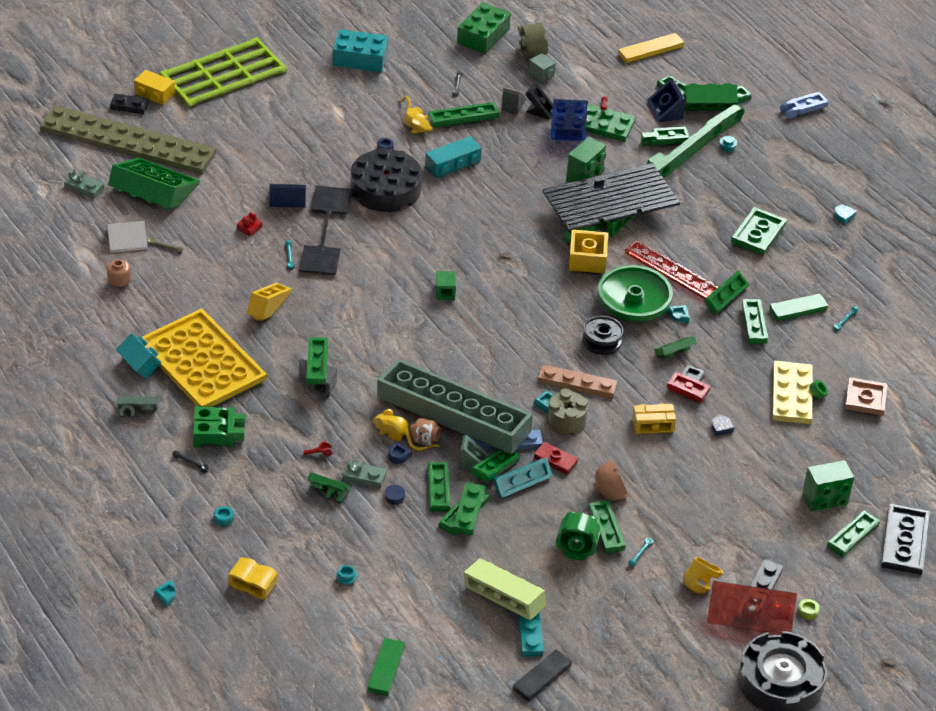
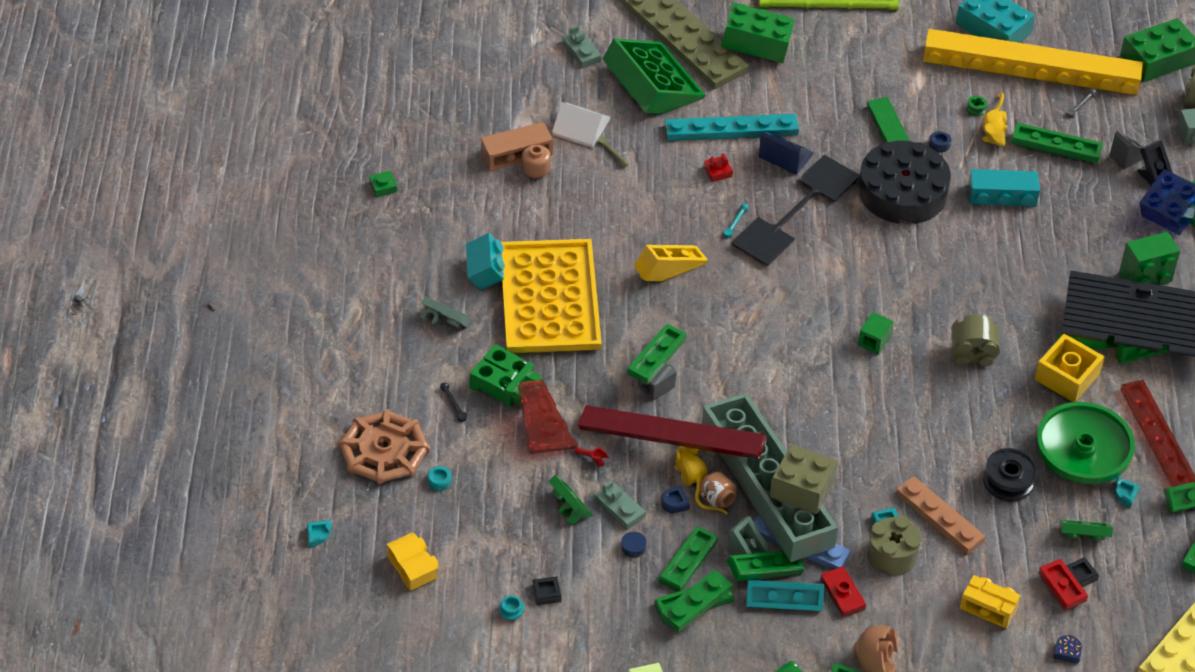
camera: 35 degrees right, 5 degrees up
(13, 337) = (383, 183): none -> green plate
(92, 269) = (507, 147): none -> nougat brick
(166, 499) = (383, 457): none -> nougat plate
(207, 122) = (758, 32): none -> green brick
(235, 194) = (730, 127): none -> teal plate
(270, 444) = (542, 421): none -> clear red wing
(339, 146) = (886, 120): none -> green tile
(360, 552) = (546, 590): none -> black tile
(367, 407) = (672, 432): none -> dark red tile
(391, 112) = (976, 110): none -> green bush
(405, 68) = (1033, 61): none -> yellow brick
(489, 392) = (804, 479): none -> olive brick
(516, 260) = (975, 340): none -> olive brick

